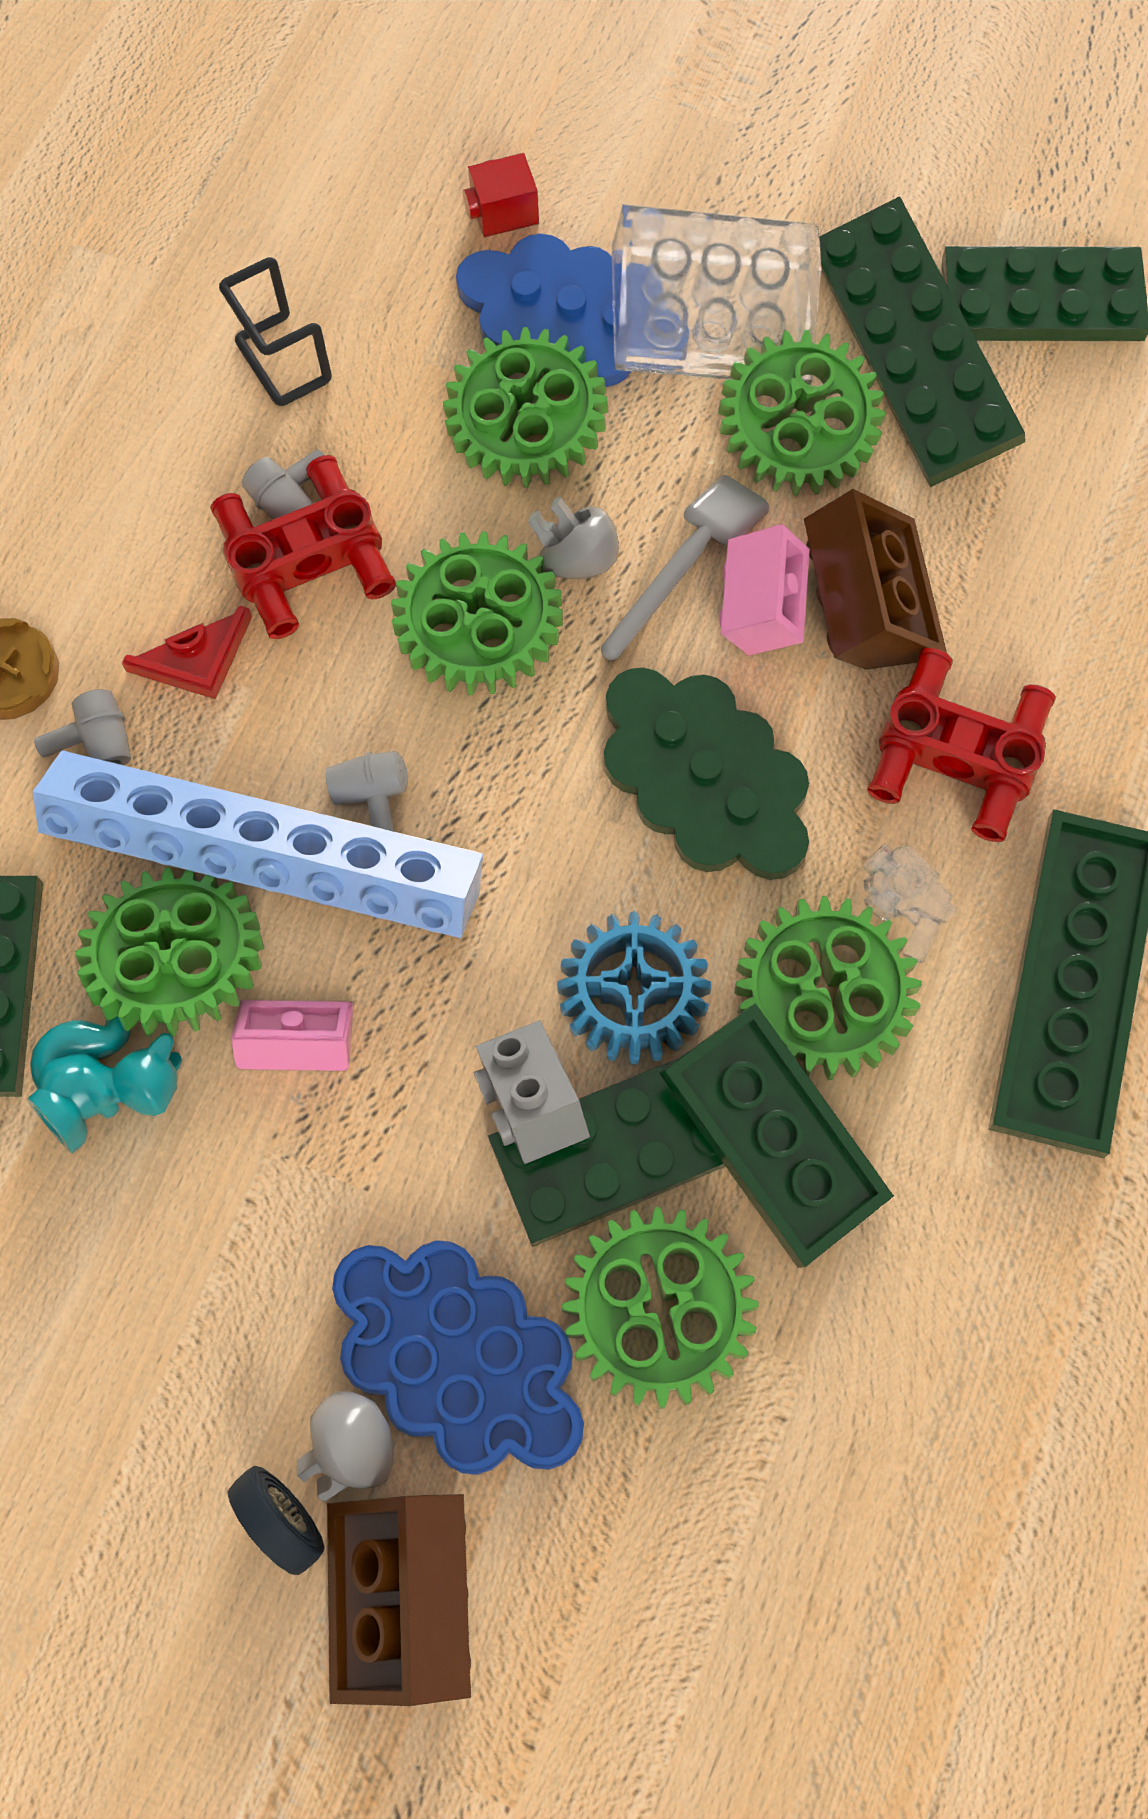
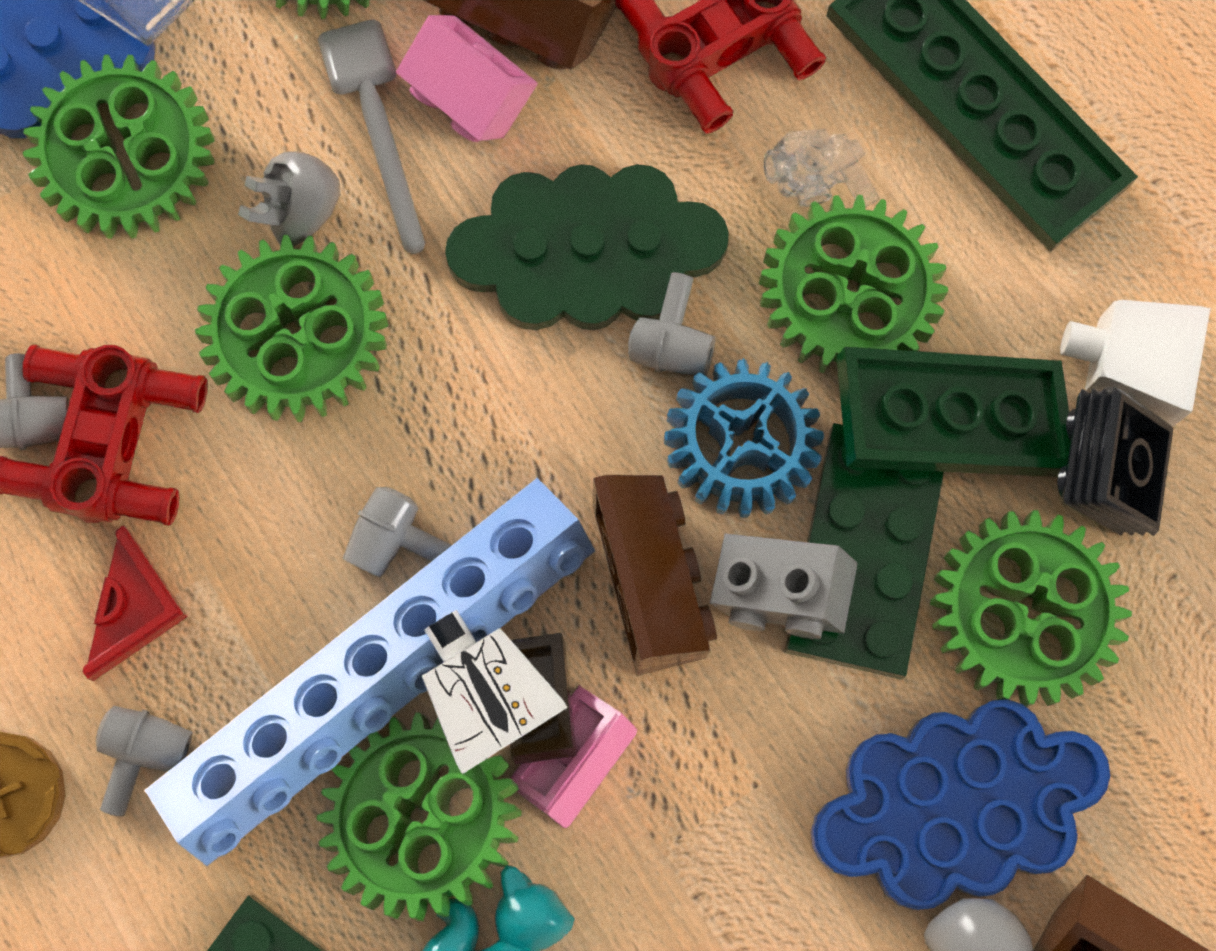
camera: 60 degrees left, 5 degrees up
(281, 919) = (484, 691): none -> white torso
(316, 974) = (555, 736): none -> dark brown plate
(468, 984) = (652, 571): none -> reddish brown slope
(669, 879) = (668, 343): none -> light grey piece
(831, 1293) = (1116, 462): none -> black brick
(950, 1259) = (1145, 352): none -> white torso

